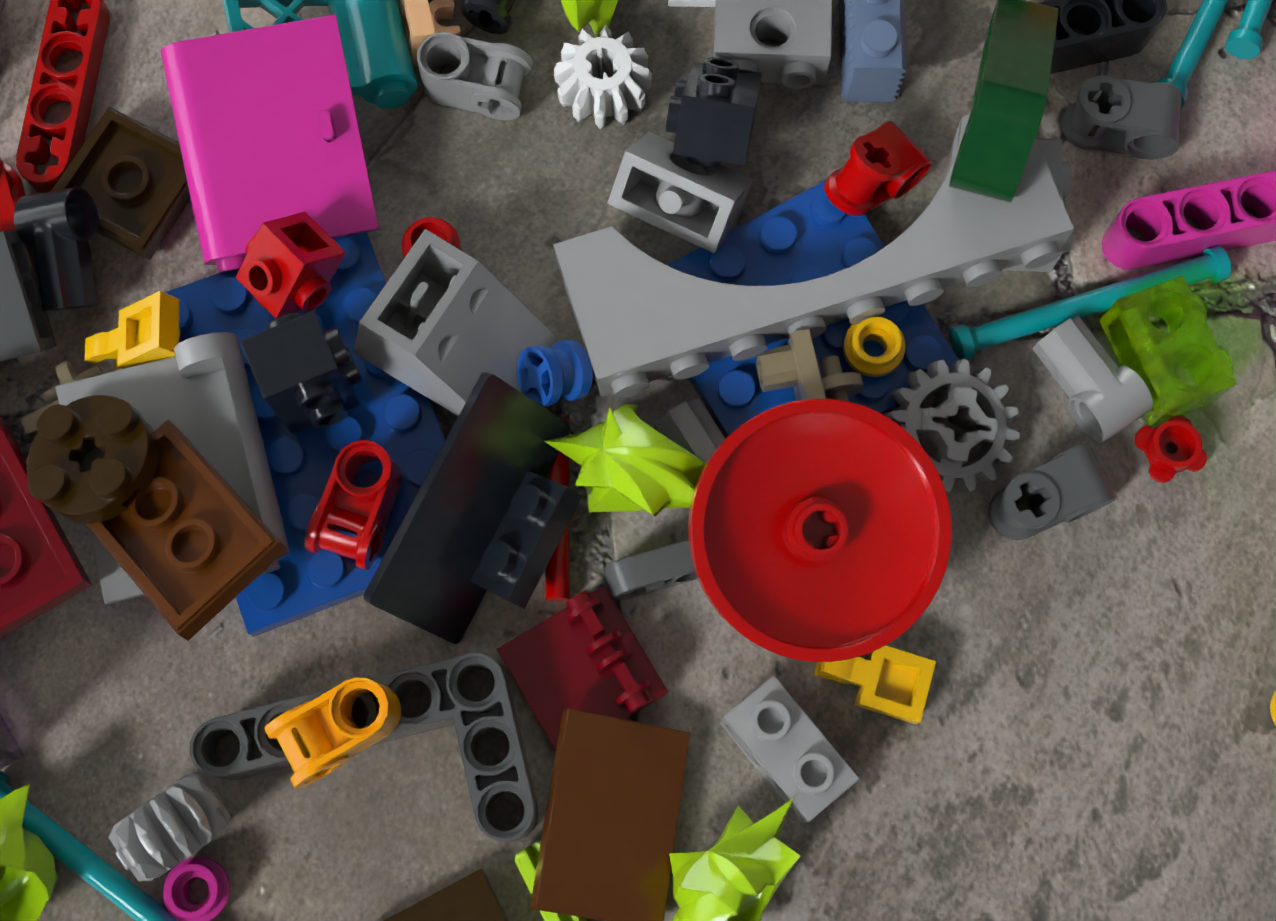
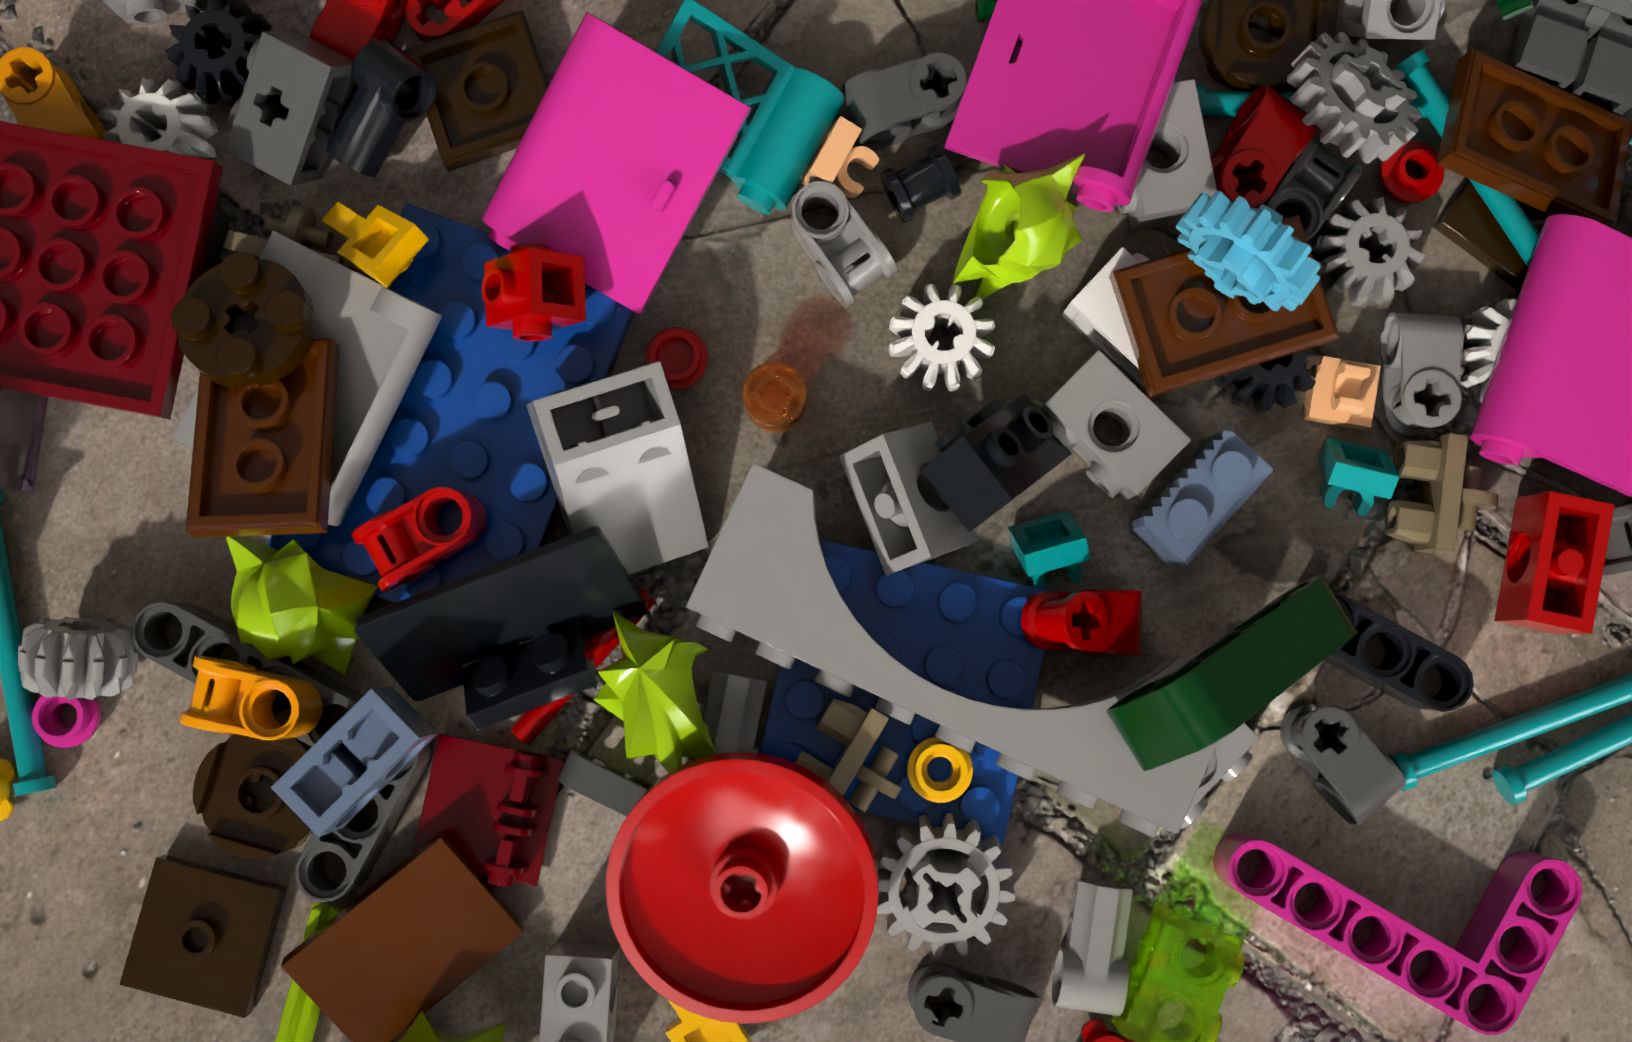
camera: 40 degrees right, 10 degrees up
(303, 371) = (462, 396): black brick -> none
(308, 638) = (293, 605): none -> lime hair
(366, 795) = (231, 811): none -> dark brown plate
(455, 688) = (354, 760): none -> sand blue brick
(525, 222) = (776, 409): none -> clear orange wheel
(555, 372) = (666, 563): blue wheel -> none
(803, 145) = (1050, 545): none -> teal tile
(1212, 265) = (1289, 944): teal bar -> none

